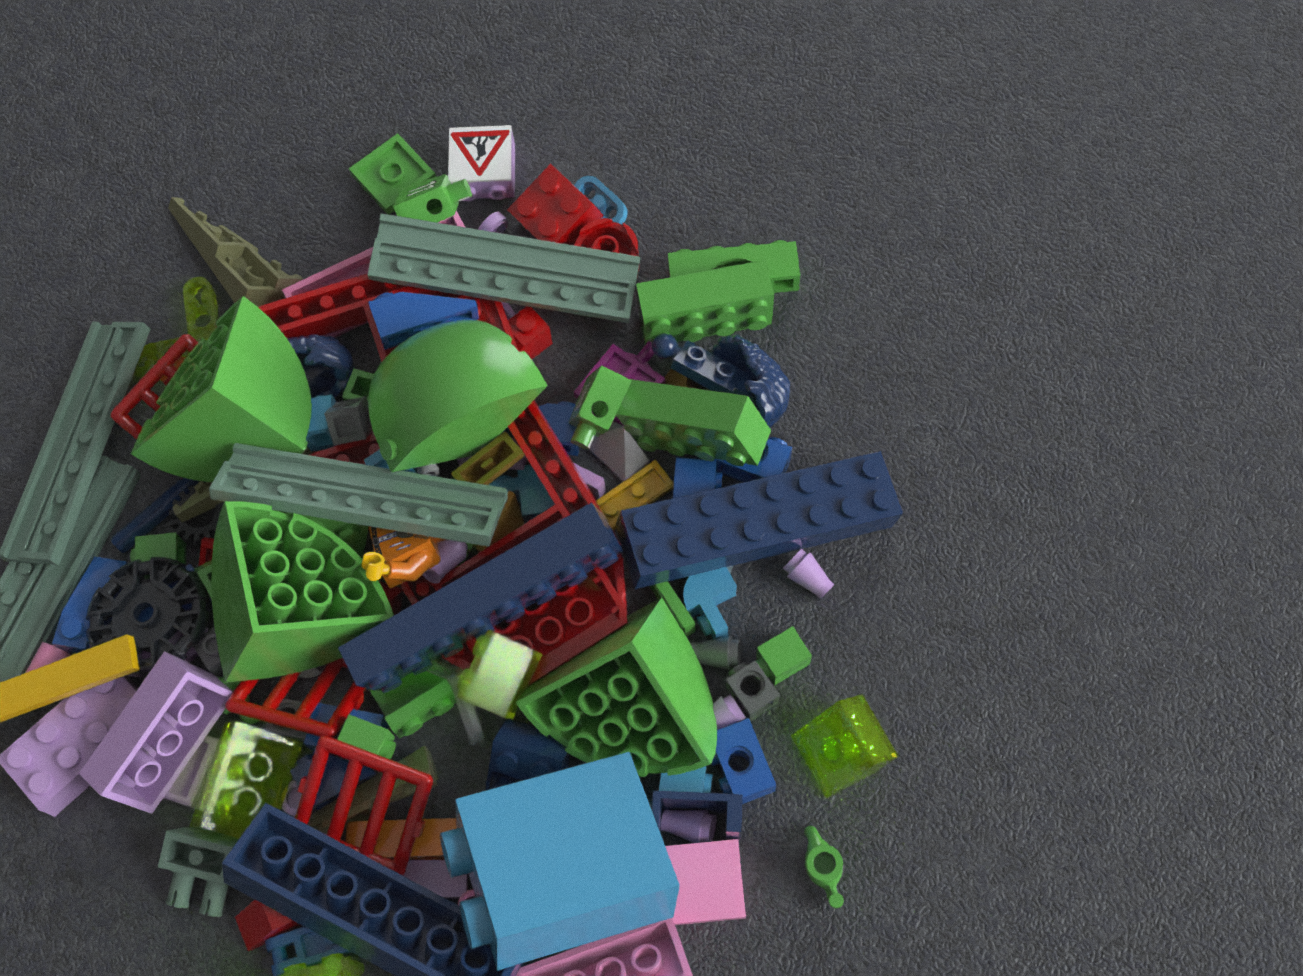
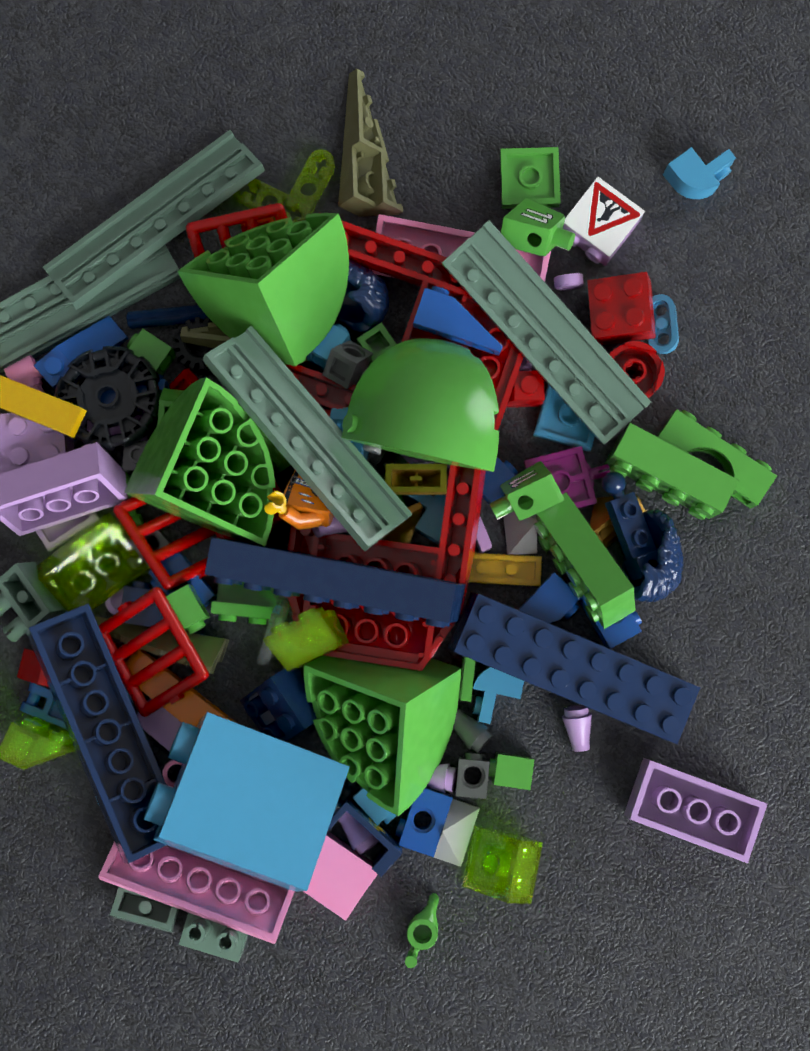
camera: 35 degrees right, 15 degrees up
(531, 78) = (695, 179): none -> dark azure brick
(580, 337) = (561, 424): none -> dark azure tile
(781, 754) = (456, 832): none -> light grey slope
(967, 558) = (695, 810): none -> lavender brick

